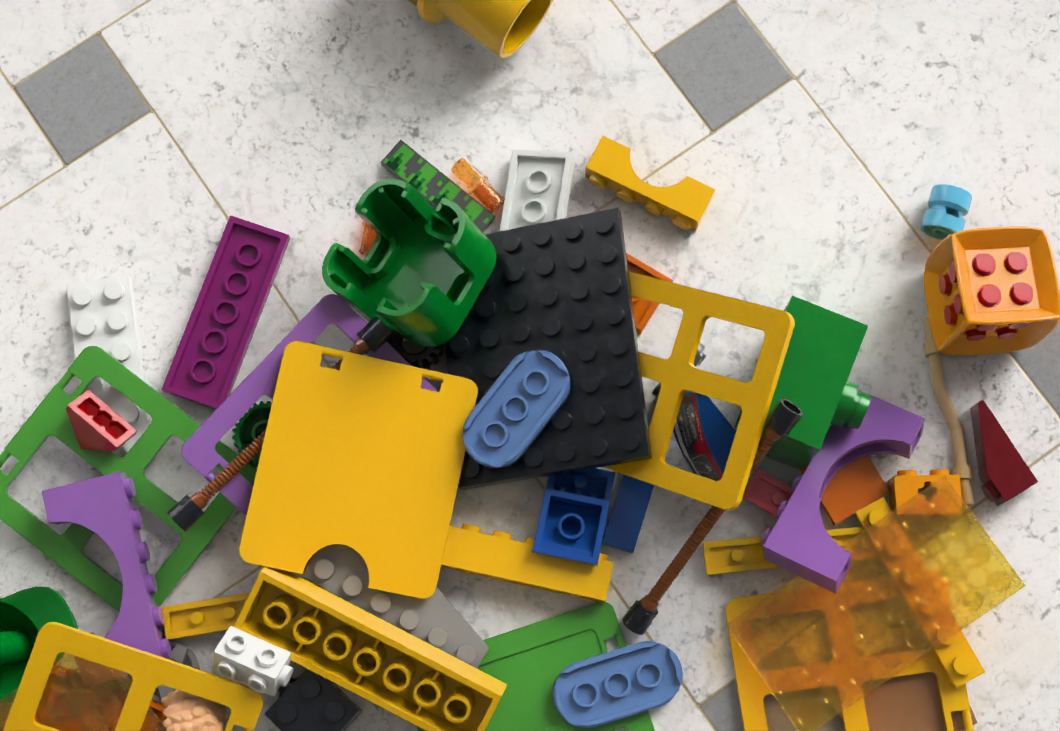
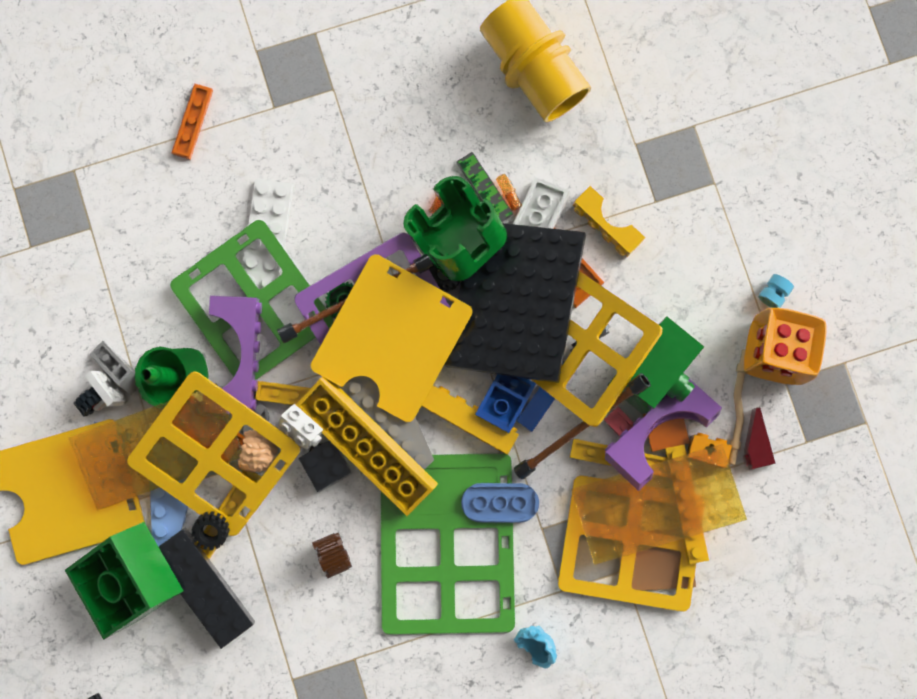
camera: 15 degrees right, 5 degrees up
(97, 424) = (251, 267): red slope -> none
(226, 313) = (342, 223): magenta plate -> none
(516, 408) = (490, 331): medium blue tile -> none
(703, 435) = (592, 379): slope -> none

